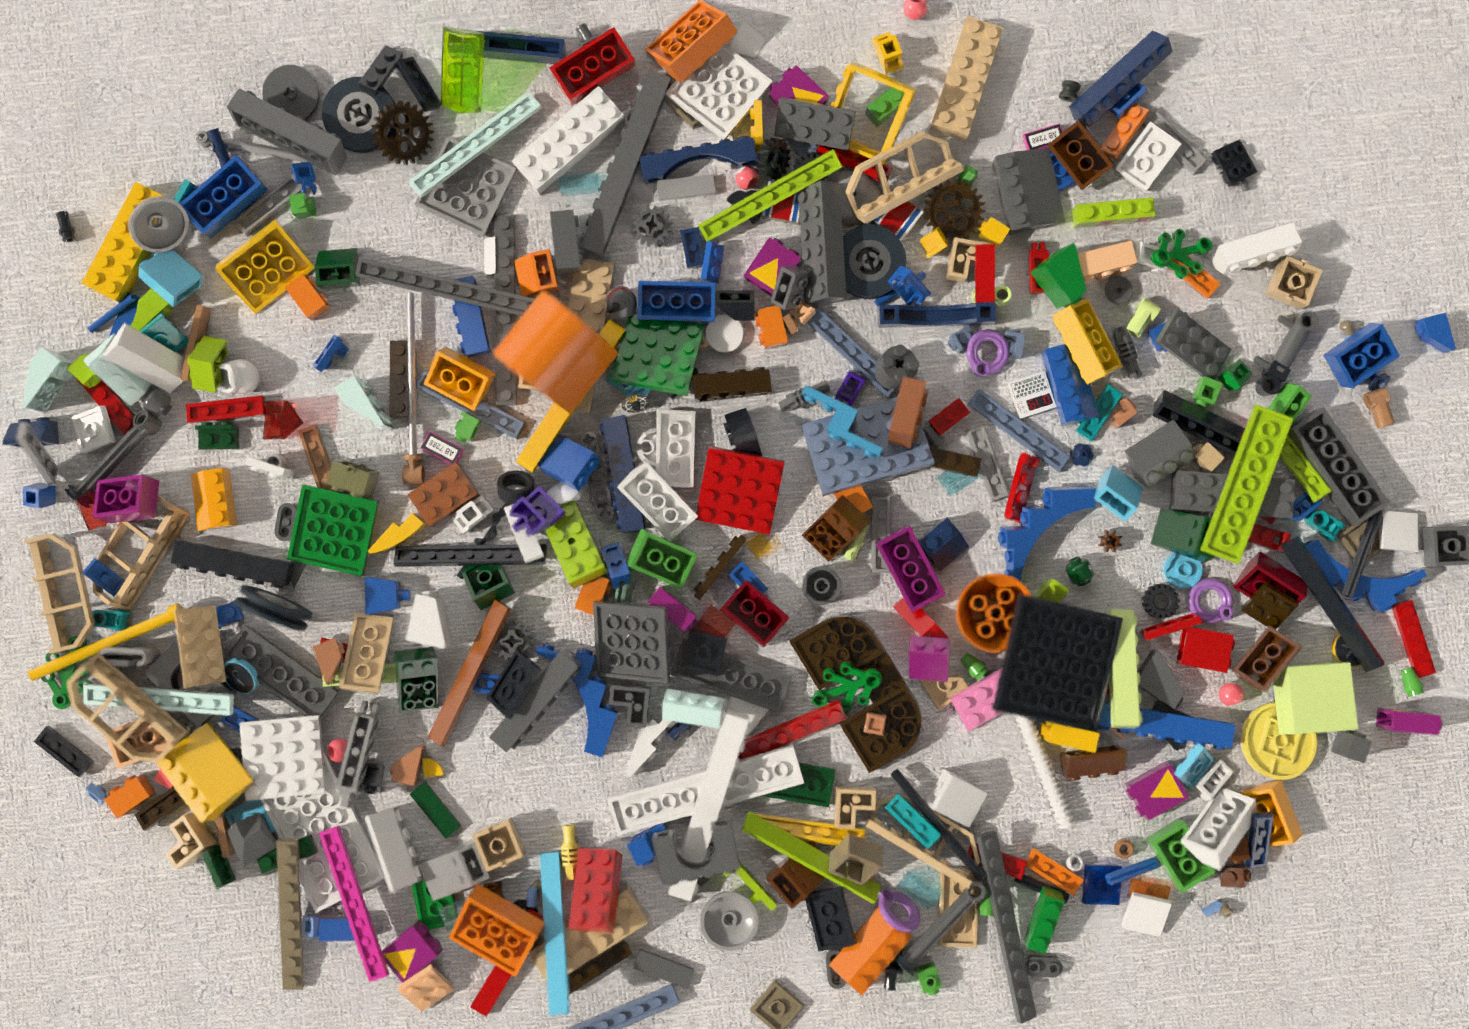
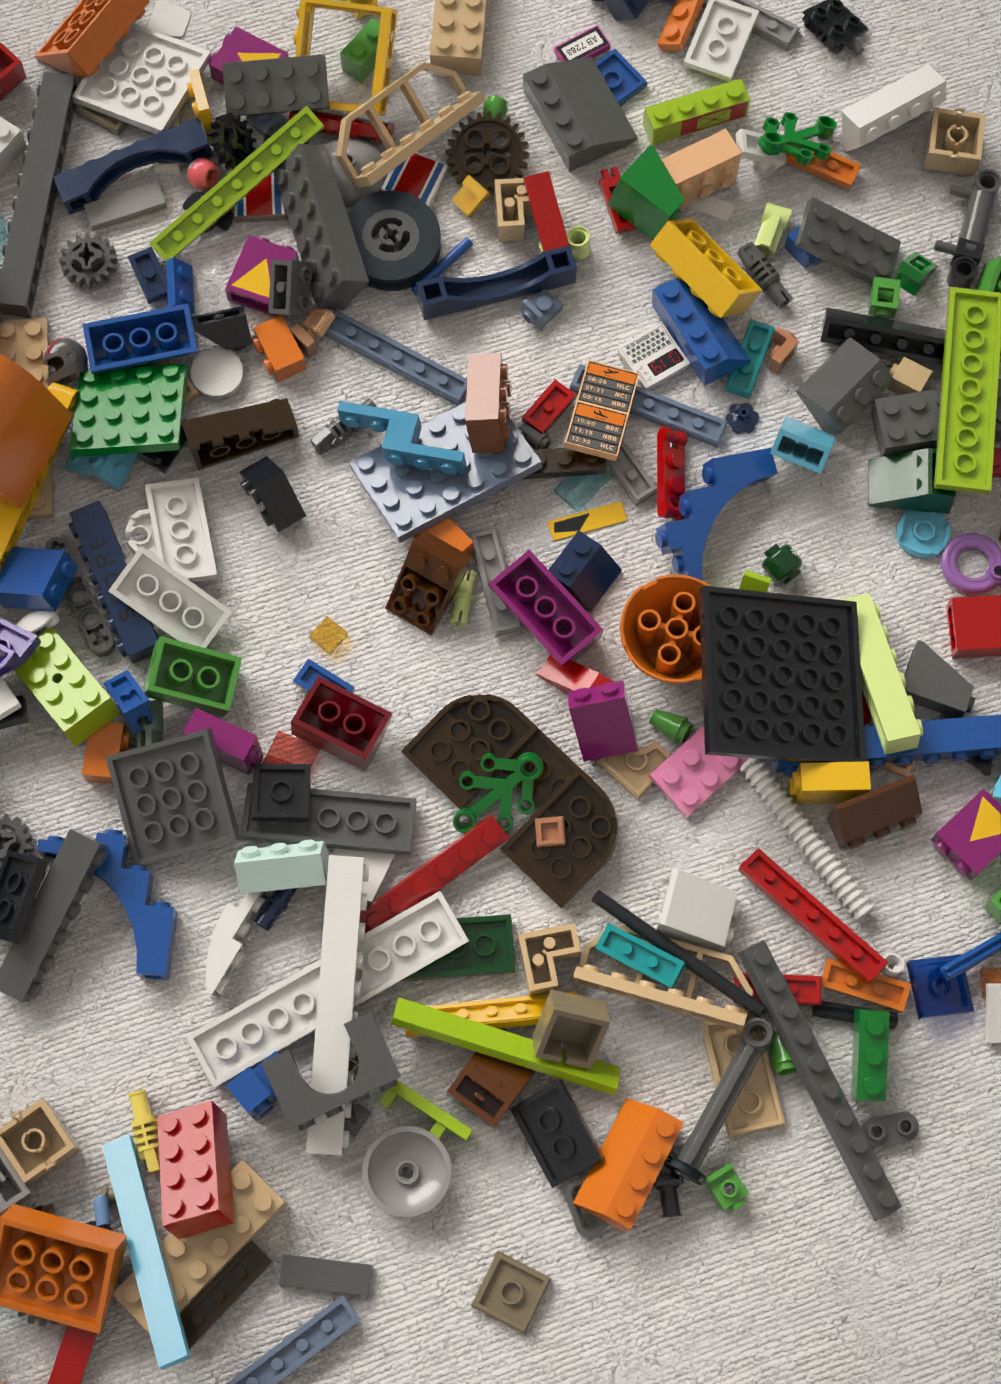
camera: 10 degrees left, 15 degrees down
(635, 403) = (112, 485): dark grey piece -> none
(635, 698) = (193, 880): dark grey brick -> none
(723, 559) = (273, 684): dark brown plate -> none
(739, 490) = (282, 562): red plate -> none
(813, 593) = (422, 678): dark grey brick -> none
(857, 377) = (409, 386): dark purple slope -> none
(885, 900) = (633, 1083): medium lavender piece -> none
(895, 364) = (452, 353): dark grey brick -> none
(908, 286) = (450, 253): blue hinge -> none
(918, 890) = (677, 1061): clear light blue slope -> none
(954, 504) = (587, 520): none -> yellow sticker
(972, 352) = (564, 329): medium lavender piece -> none
(985, 431) = (601, 410): none -> tile
(993, 232) = (547, 161): yellow brick -> none
(1017, 345) = (613, 289): sand blue bracket -> none
(1032, 820) = (813, 916): none -> red plate
(1080, 154) = (634, 51): reddish brown slope -> none
(1103, 542) = (811, 508): reddish brown gear -> none
(1118, 290) = (731, 203): dark grey piece -> none
(1129, 848) = (959, 921): medium nougat plate -> none
(1170, 626) = (928, 605): red tile -> none
(1171, 606) = (910, 563): black tyre -> none

